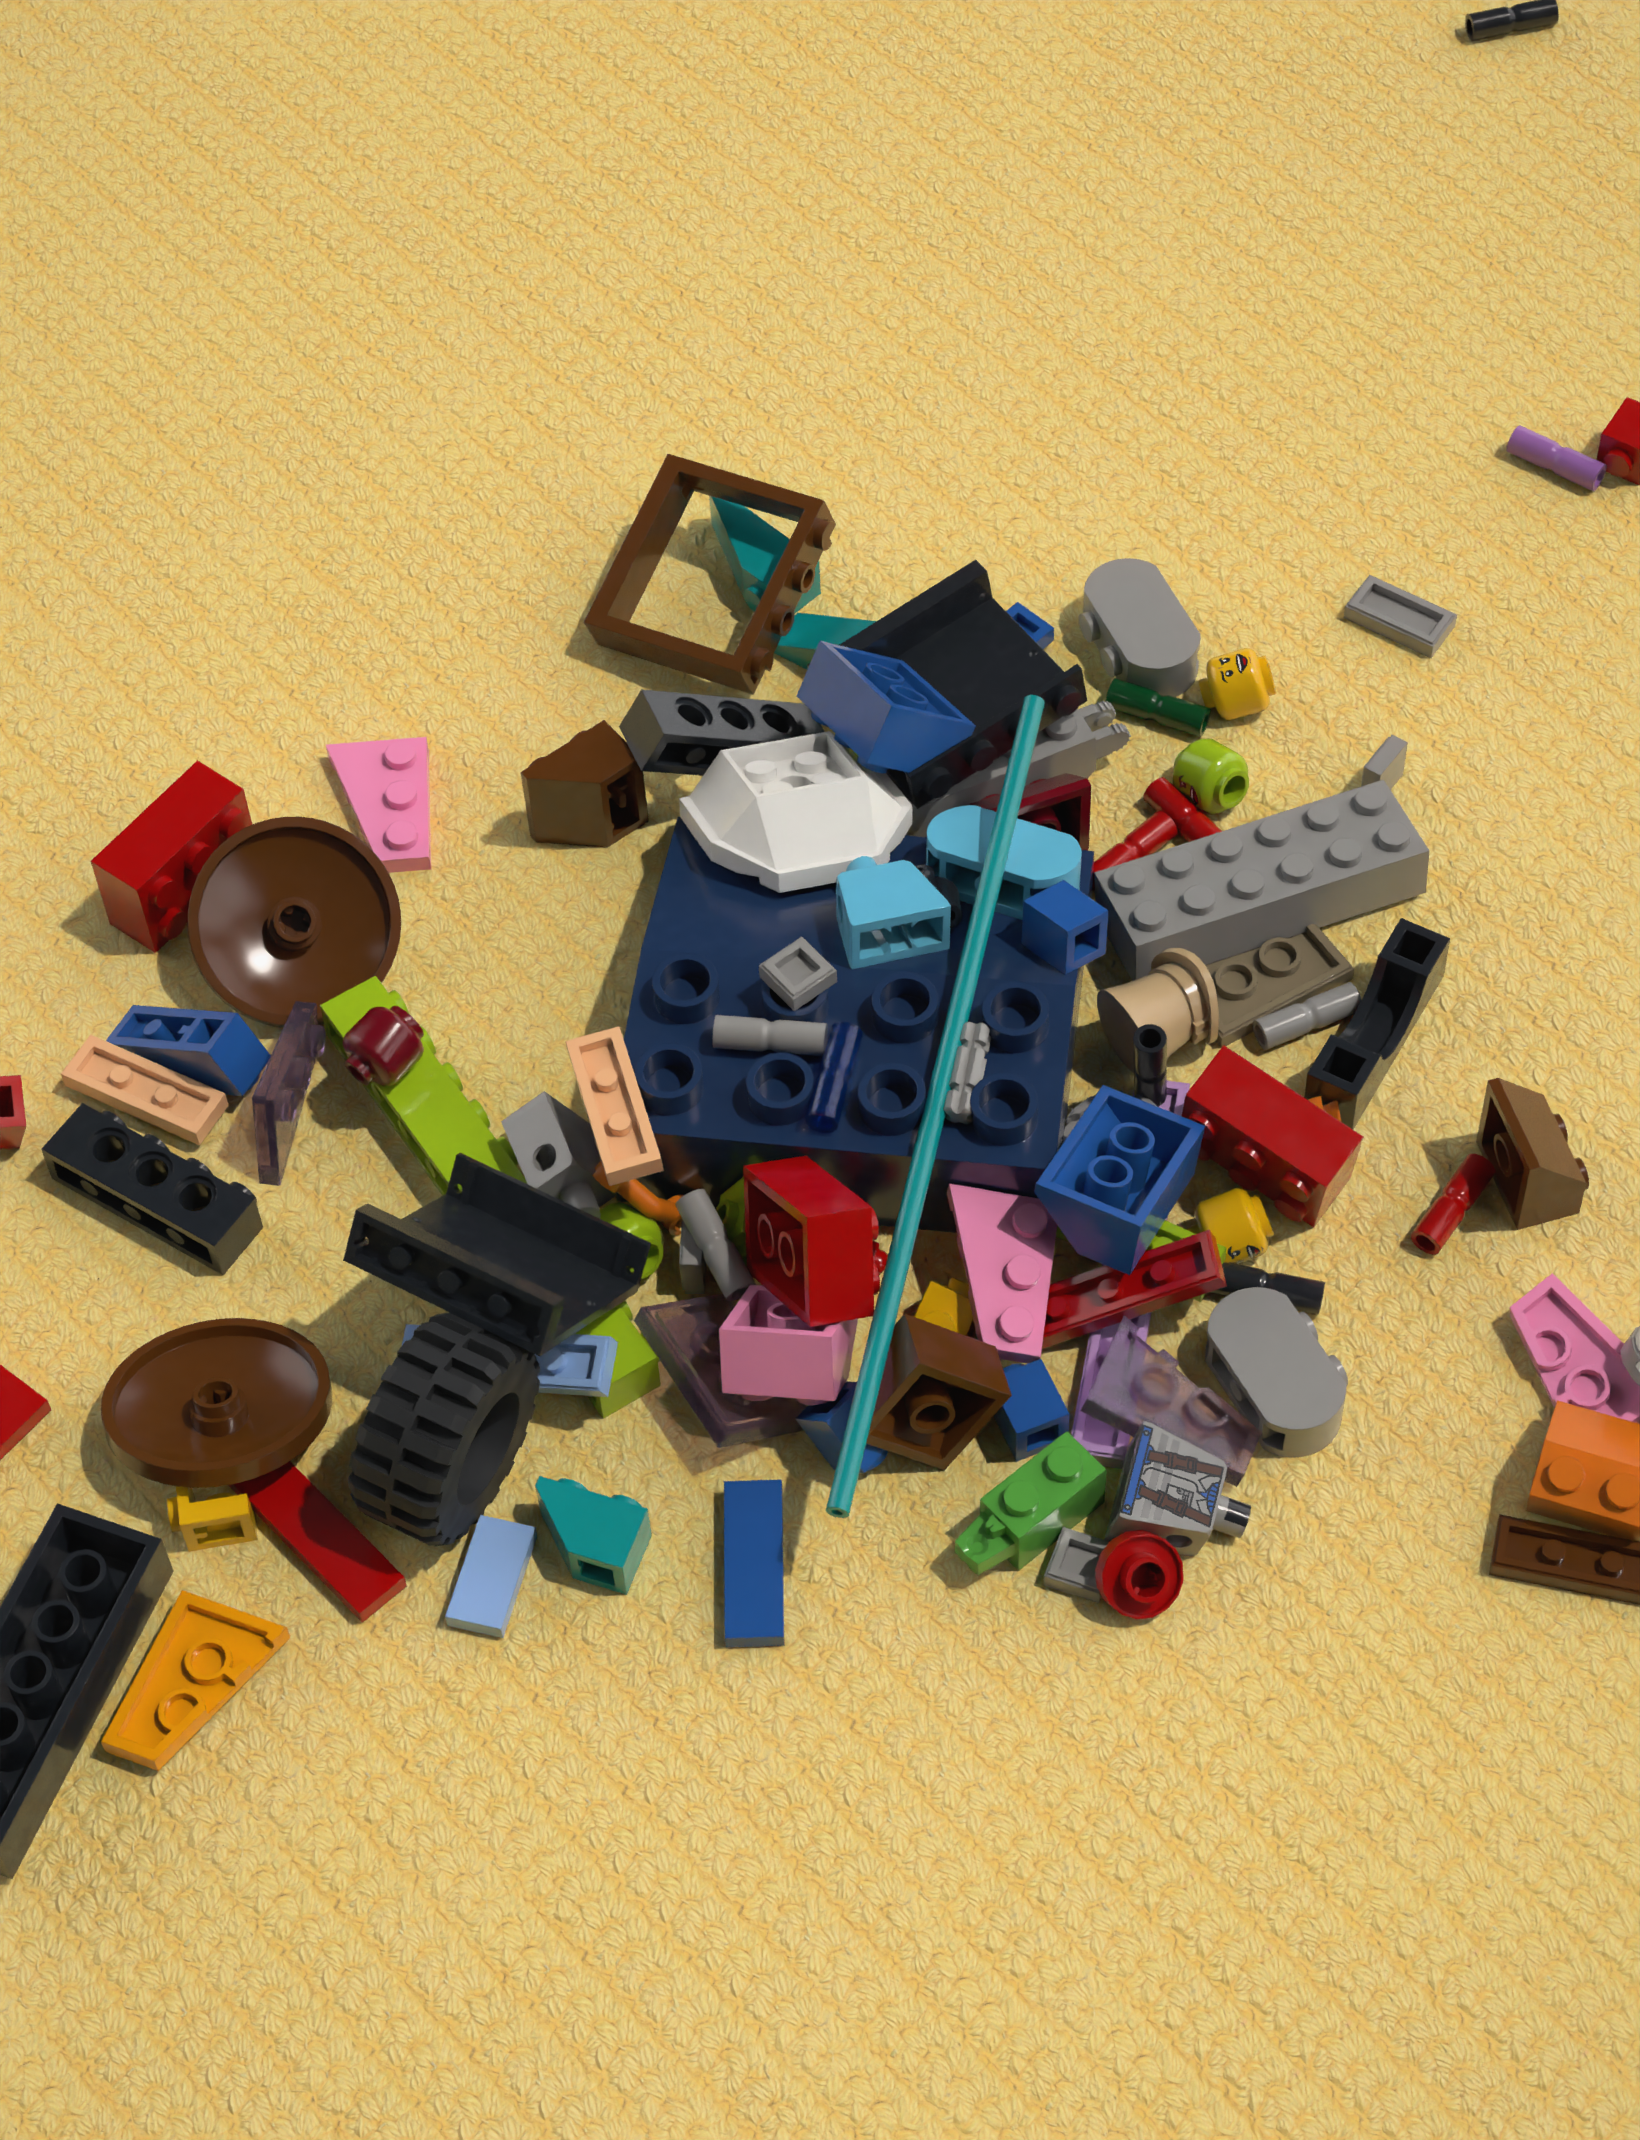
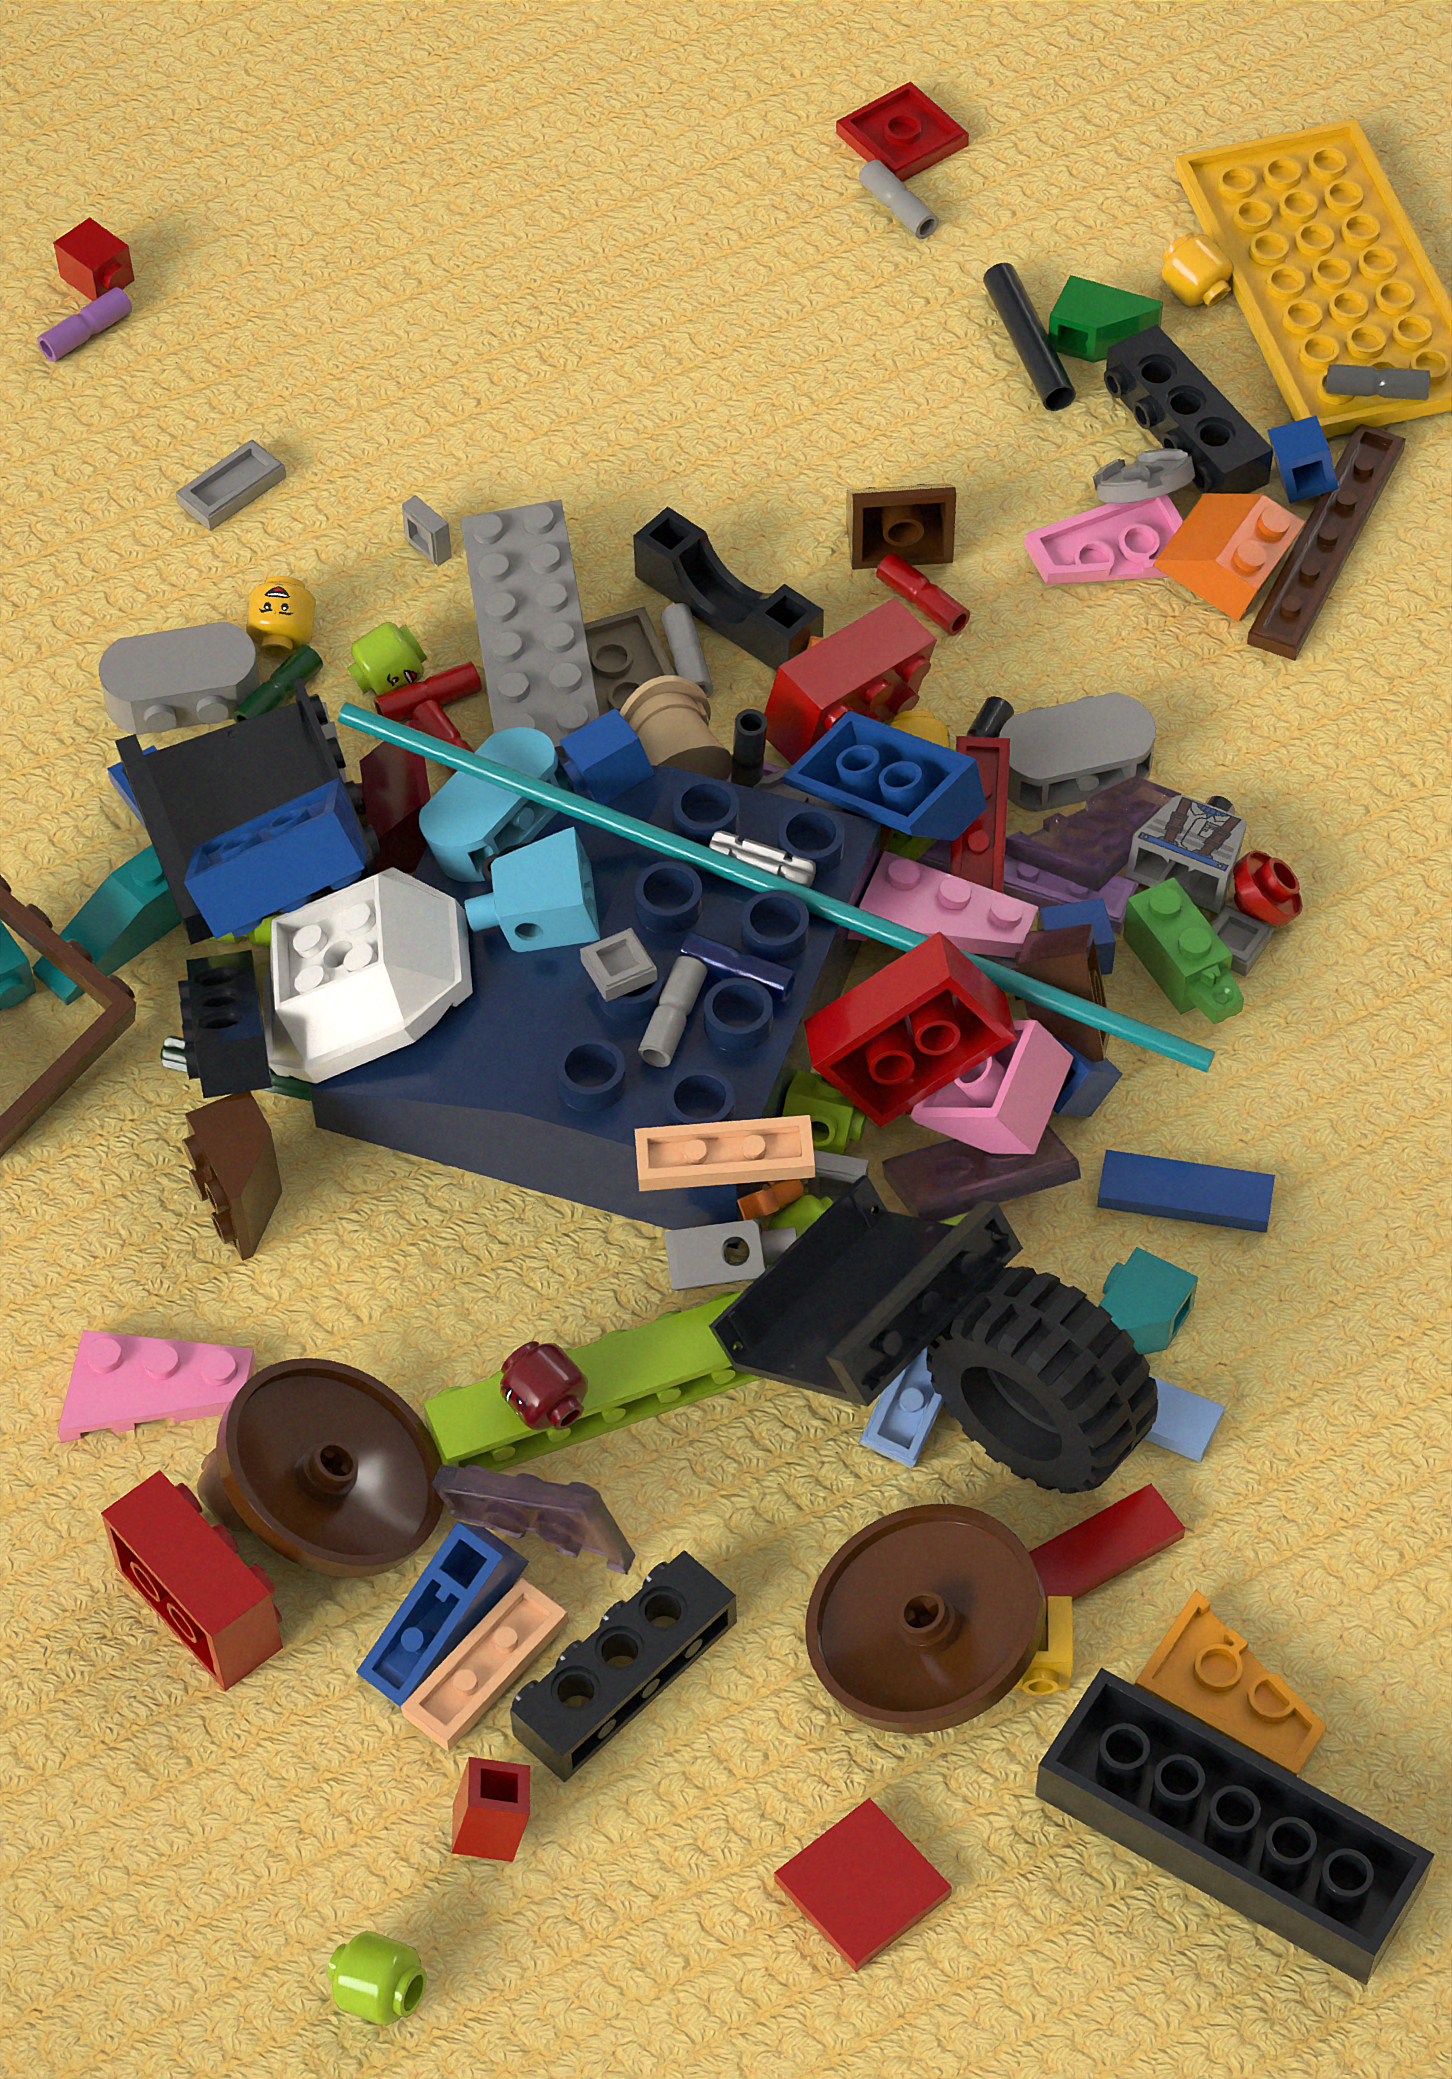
camera: 80 degrees left, 0 degrees up
(713, 1240) = (863, 1137): light grey piece -> none

